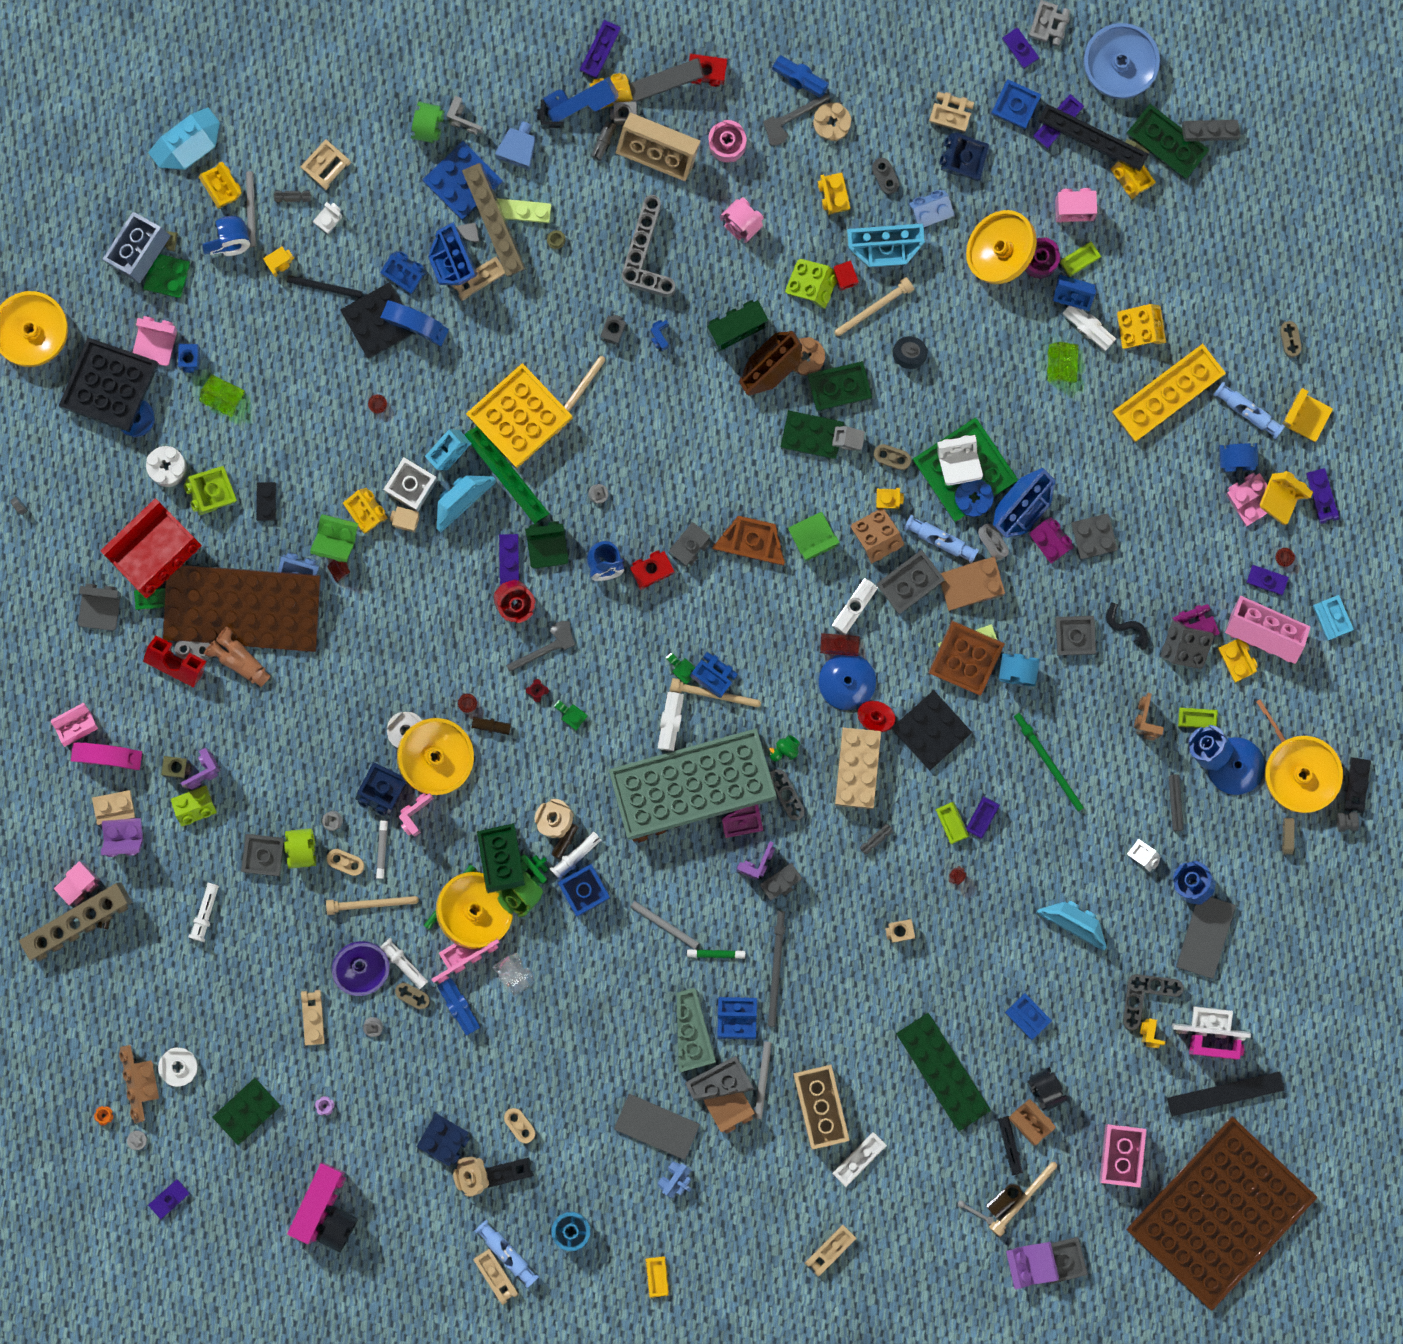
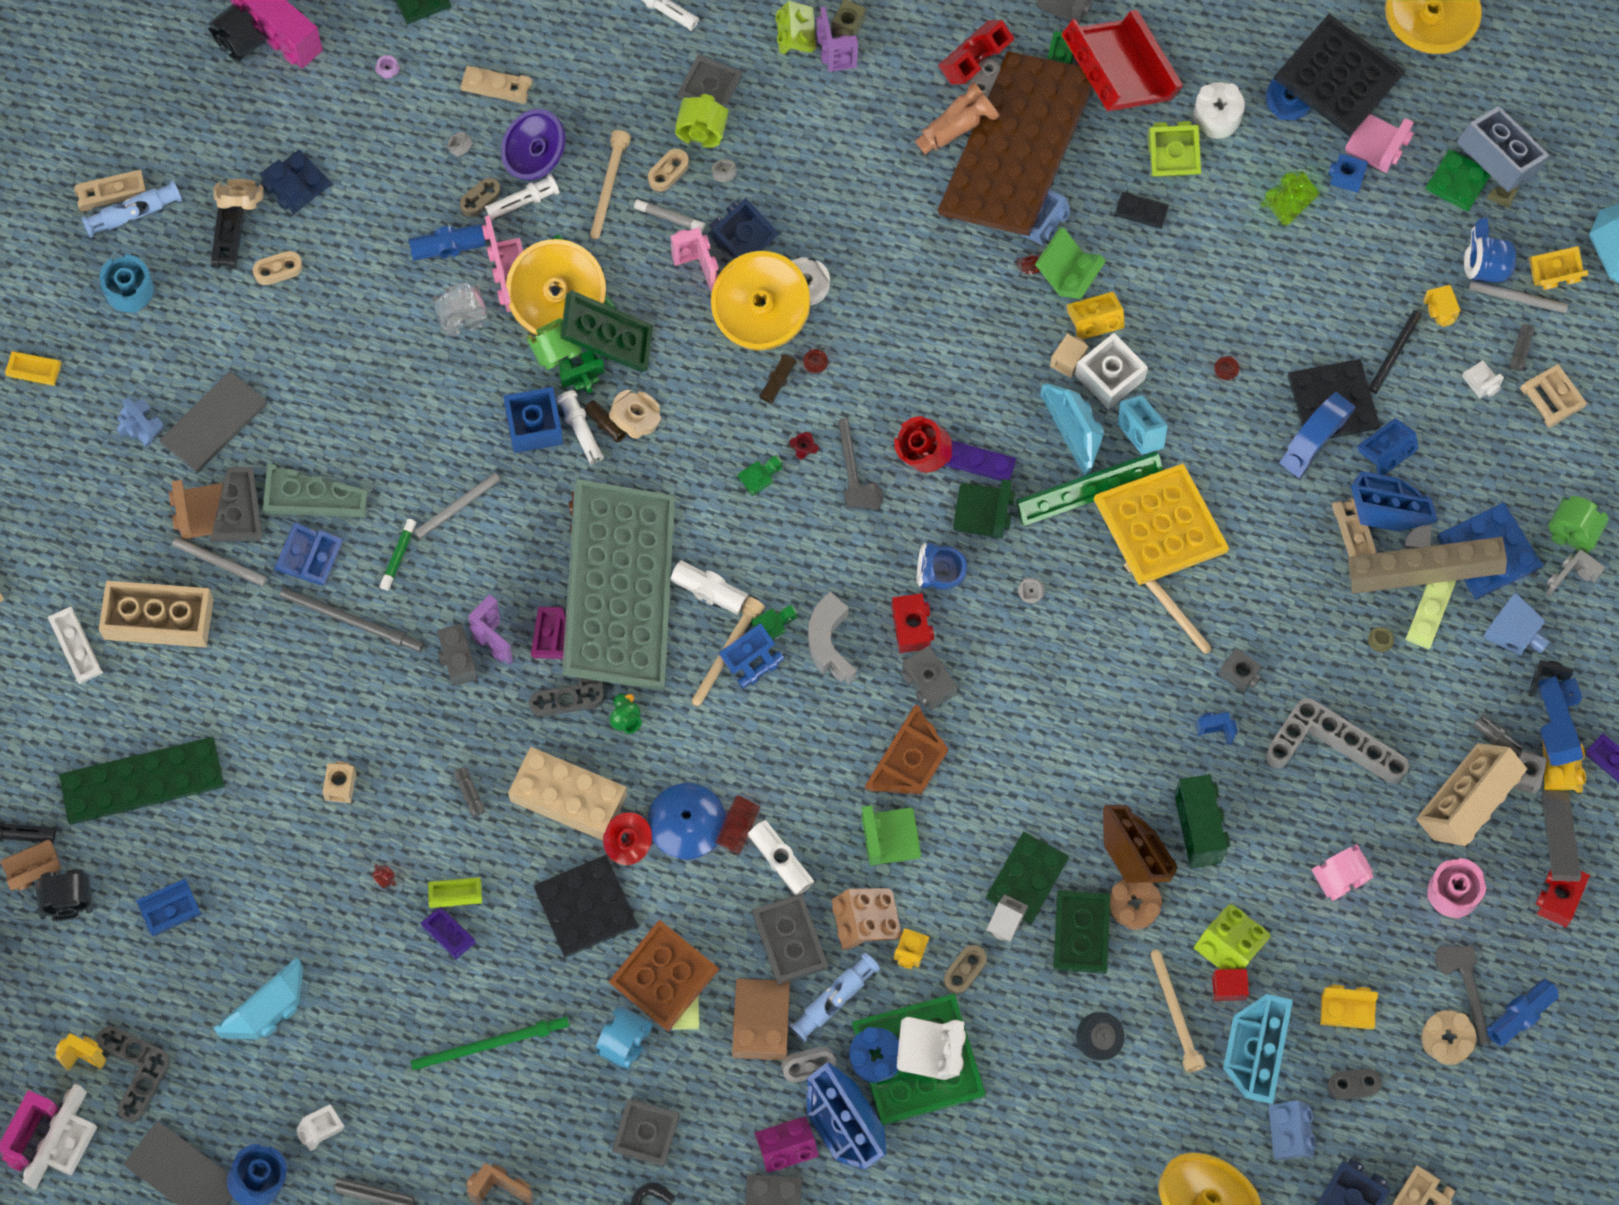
camera: 105 degrees right, 15 degrees down
(683, 631) = (824, 620): none -> light grey arch

